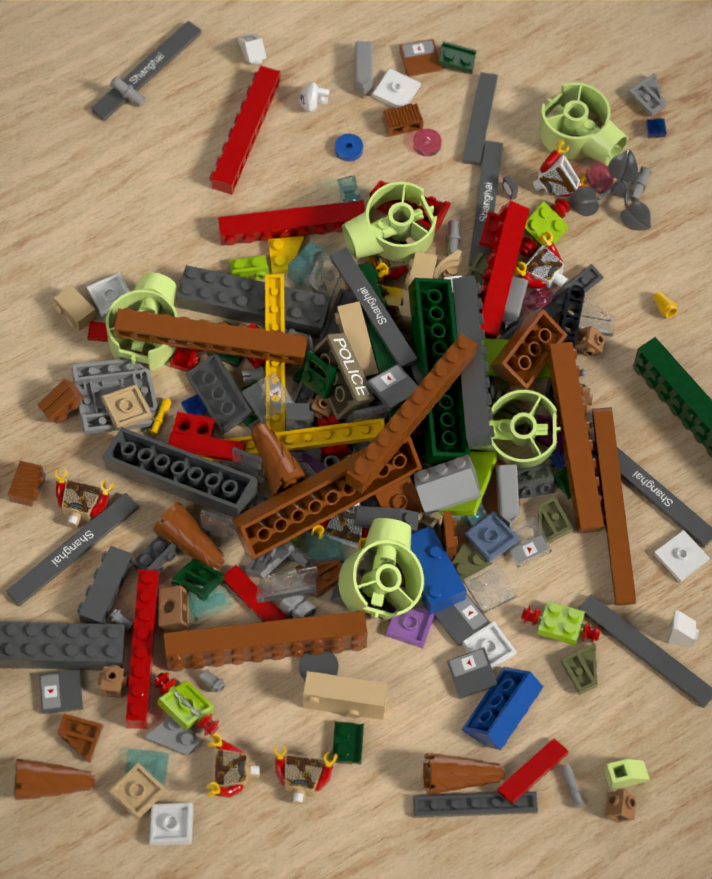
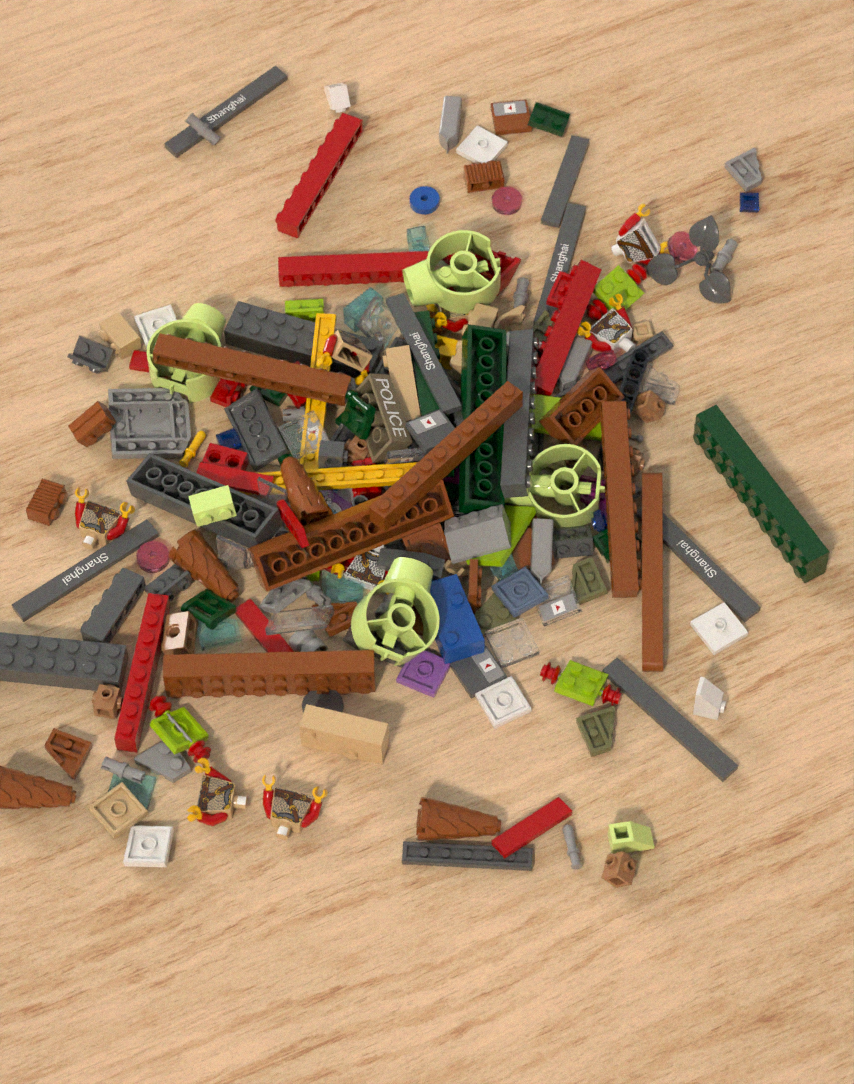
camera: 10 degrees right, 5 degrees down
(50, 329) = (92, 354): none -> dark grey bracket
(61, 691) = (54, 708): dark grey tile -> none
(119, 618) = (122, 639): light grey pin -> none
(126, 407) = (158, 434): tan tile -> none
(136, 538) = (156, 564): none -> clear pink piece
(137, 750) = (123, 770): none -> light grey pin
(192, 479) = (212, 506): none -> yellowish green brick
(212, 681) = (214, 714): light grey pin -> none
(273, 492) = (292, 523): none -> red tile
(282, 252) = (341, 295): yellow wing -> none
(302, 311) = (348, 351): none -> torso
(311, 95) = (391, 146): white piece -> none
(348, 742) = (342, 783): dark green plate -> none
(472, 673) = (481, 724): dark grey tile -> none
(503, 707) = (509, 762): blue slope -> none
(510, 187) = (587, 250): tile -> none
(572, 265) = (642, 332): none -> tan tile
(575, 128) = (659, 192): yellowish green animal -> none
(666, 306) = (736, 379): yellow cone -> none

